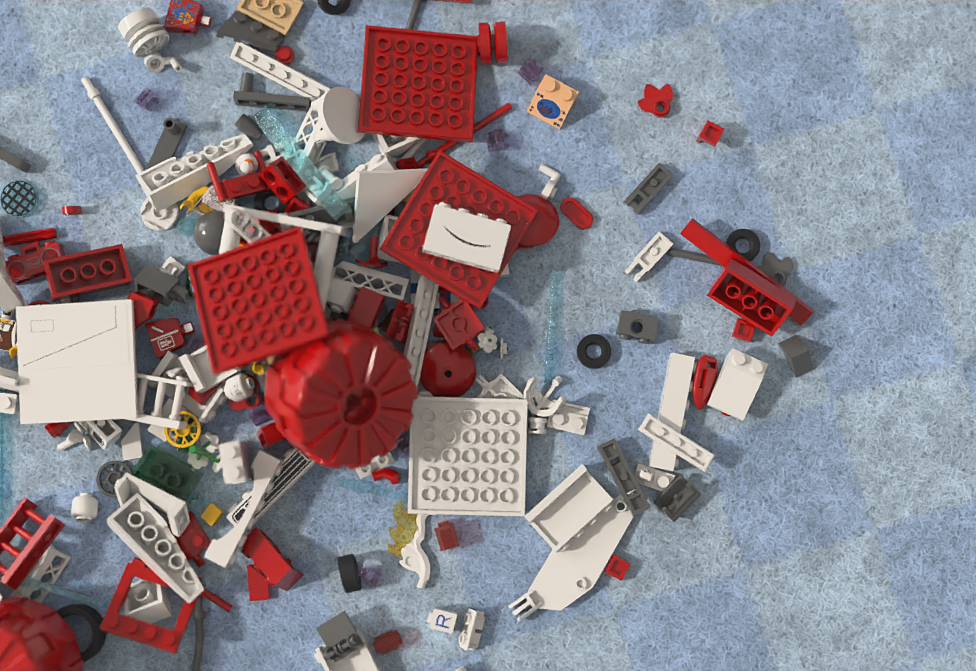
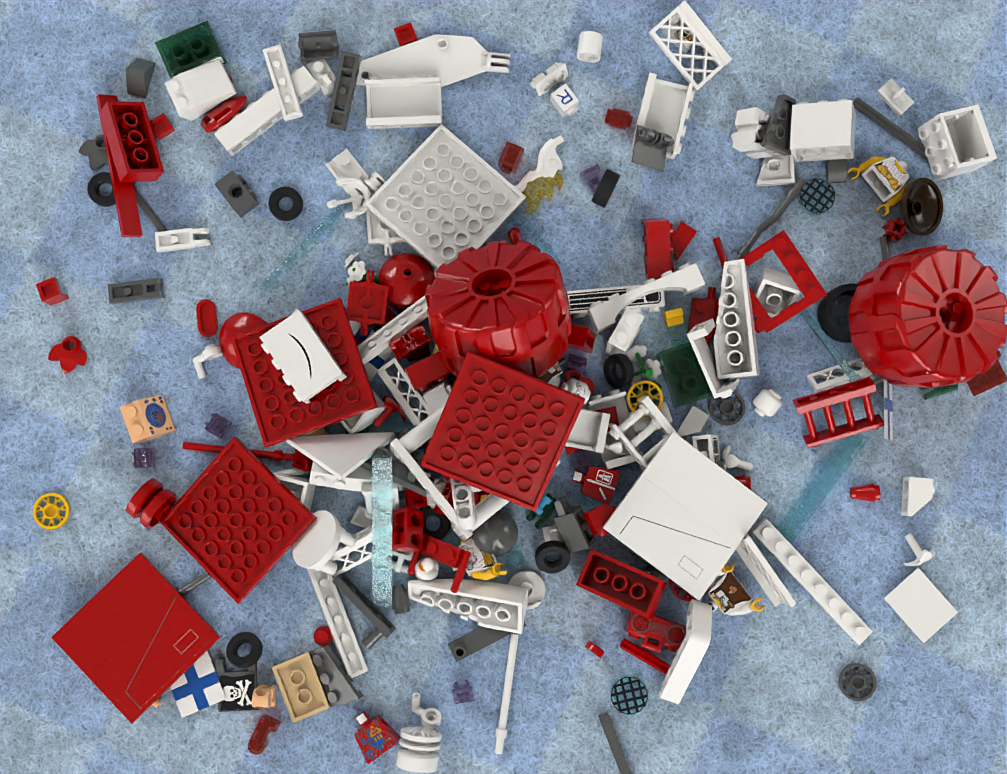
camera: 135 degrees left, 0 degrees up
(165, 255) = (550, 547): none -> black tyre
(223, 427) = (626, 367): none -> black tyre
(772, 407) = (190, 49): none -> clear green brick

